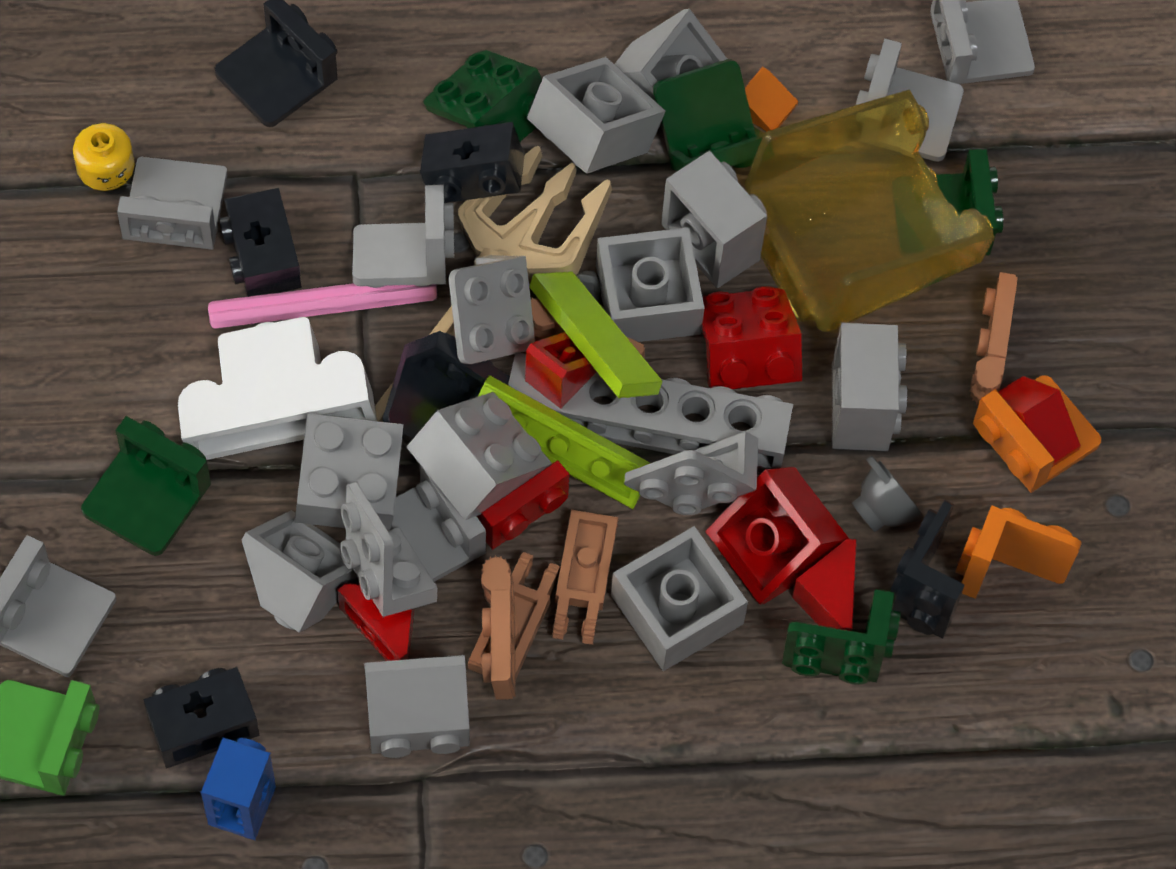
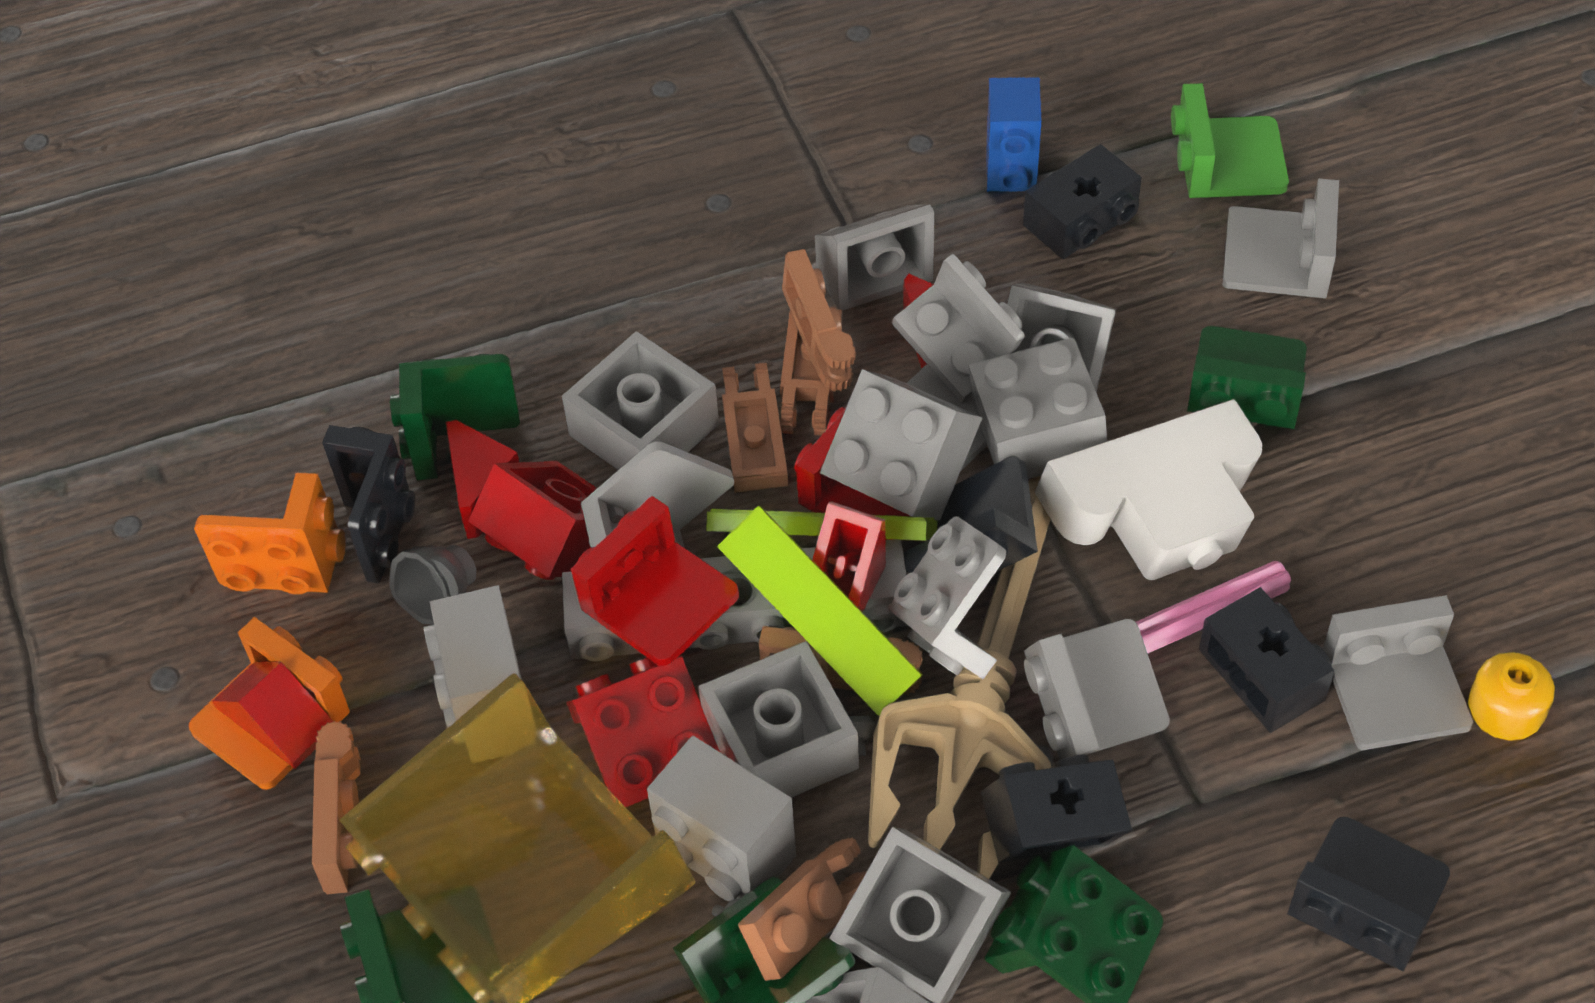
camera: 170 degrees right, 10 degrees down
(670, 150) = (801, 910): none -> nougat hinge
(717, 390) = (651, 586): none -> red bracket

